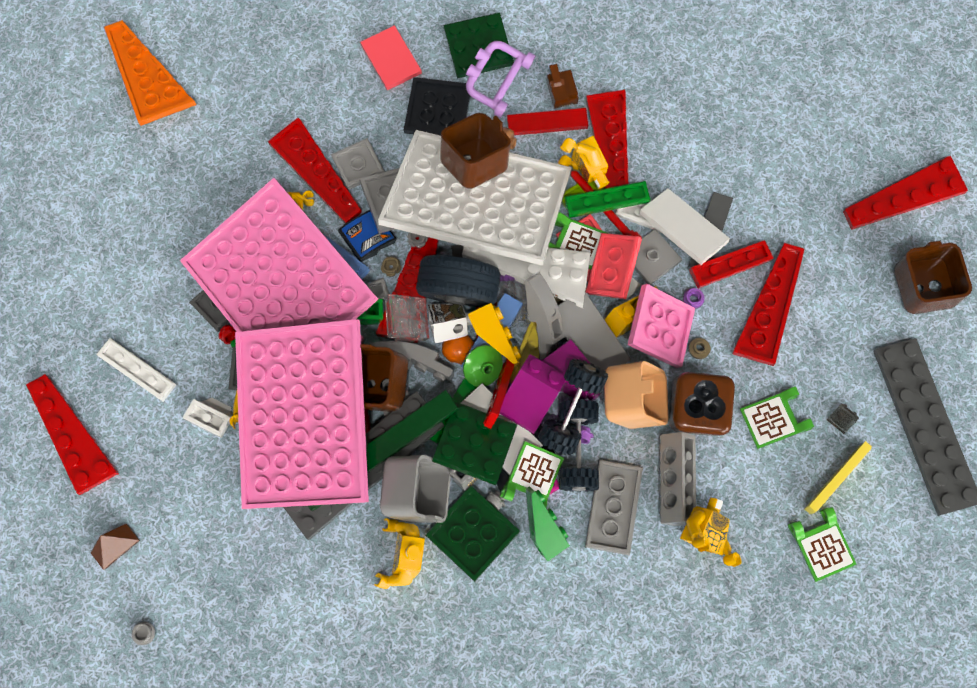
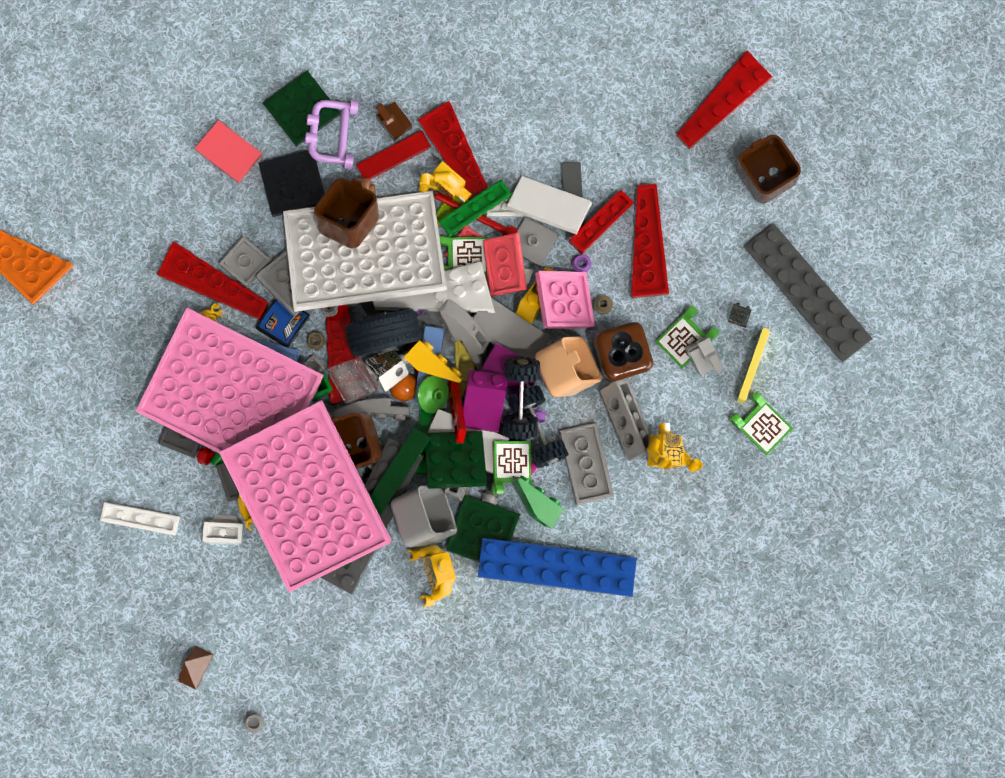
camera: 25 degrees left, 5 degrees up
(77, 449) = (122, 603): red wing -> none
(536, 607) = (557, 567): none -> blue plate
(788, 445) = (704, 356): none -> light grey piece

